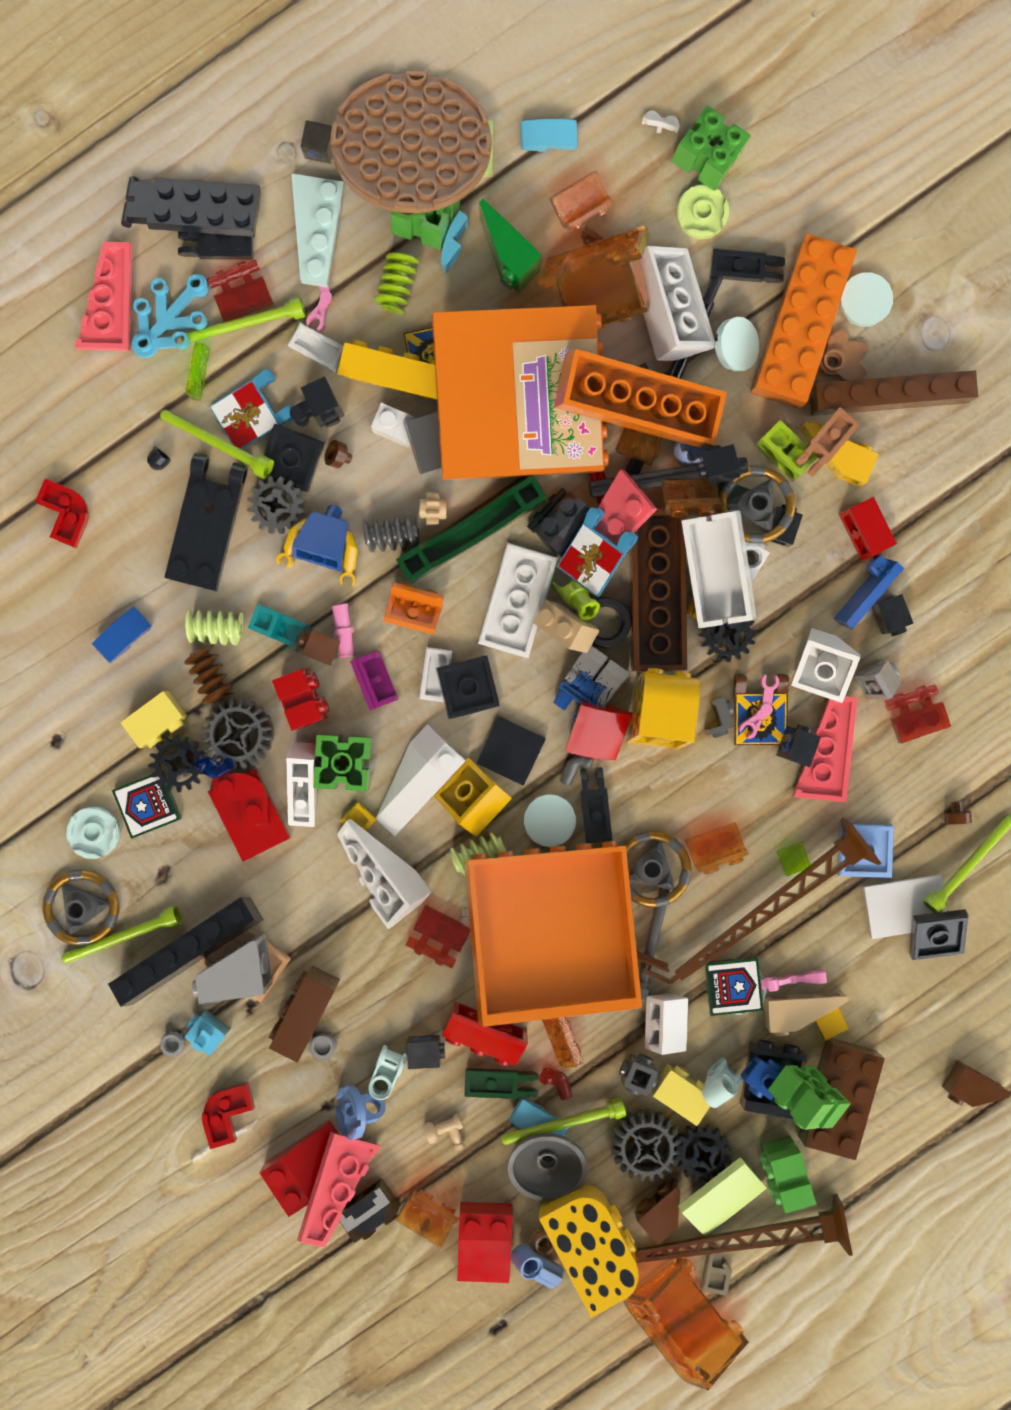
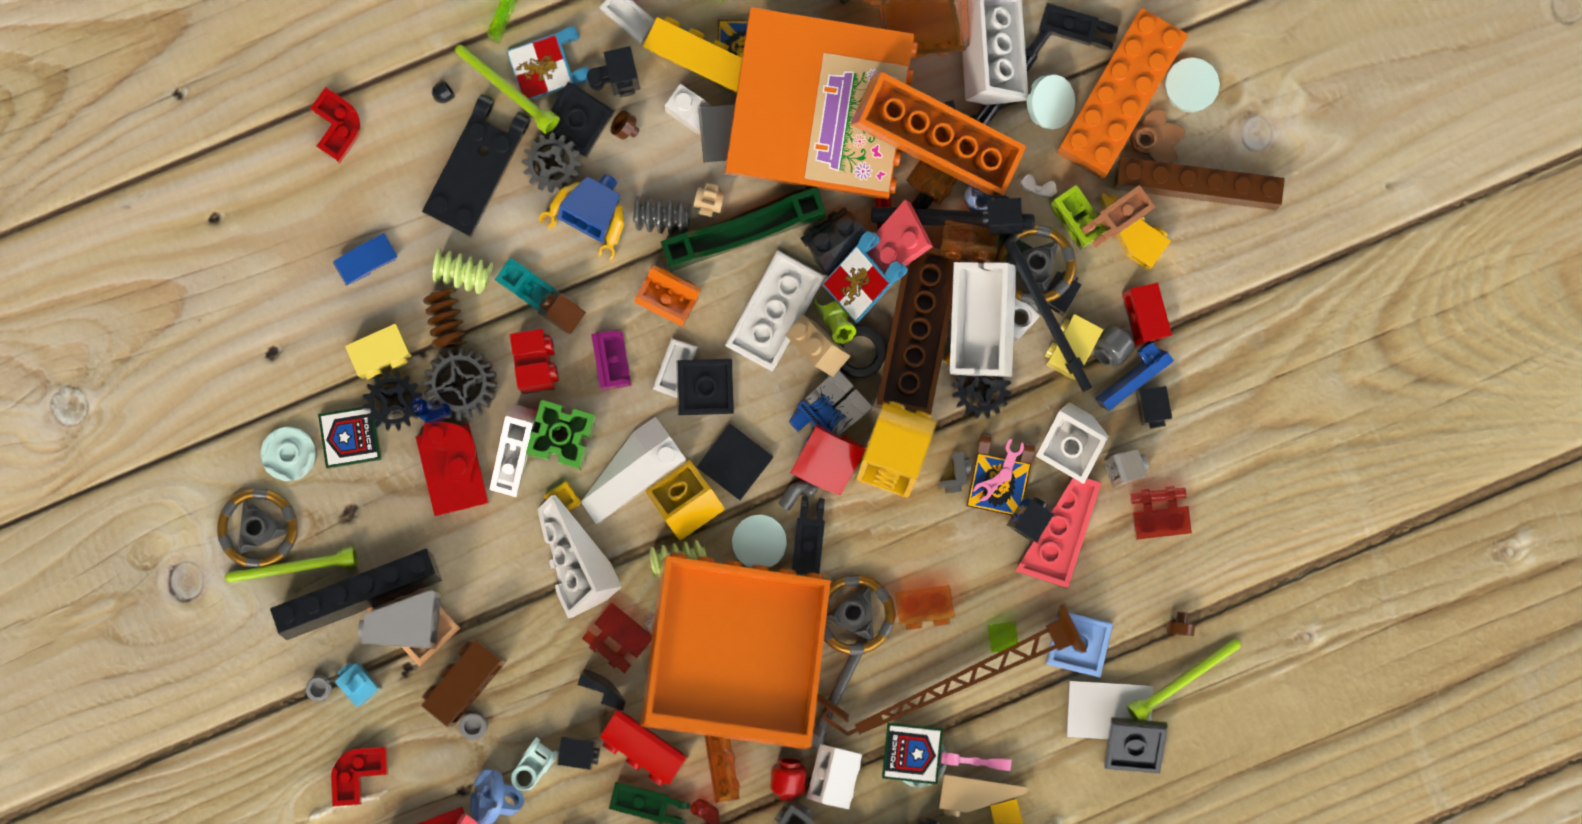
camera: 10 degrees right, 5 degrees down
(343, 630) = (591, 303): bright pink pin -> none
(433, 984) = (596, 682): none -> black slope
(624, 1033) = (788, 779): none -> red head
(749, 430) = (1047, 190): none -> white piece
(805, 574) = (1082, 339): none -> light yellow brick
(811, 591) = (1074, 364): none -> black bar
(843, 565) = (1114, 345): none -> dark grey head

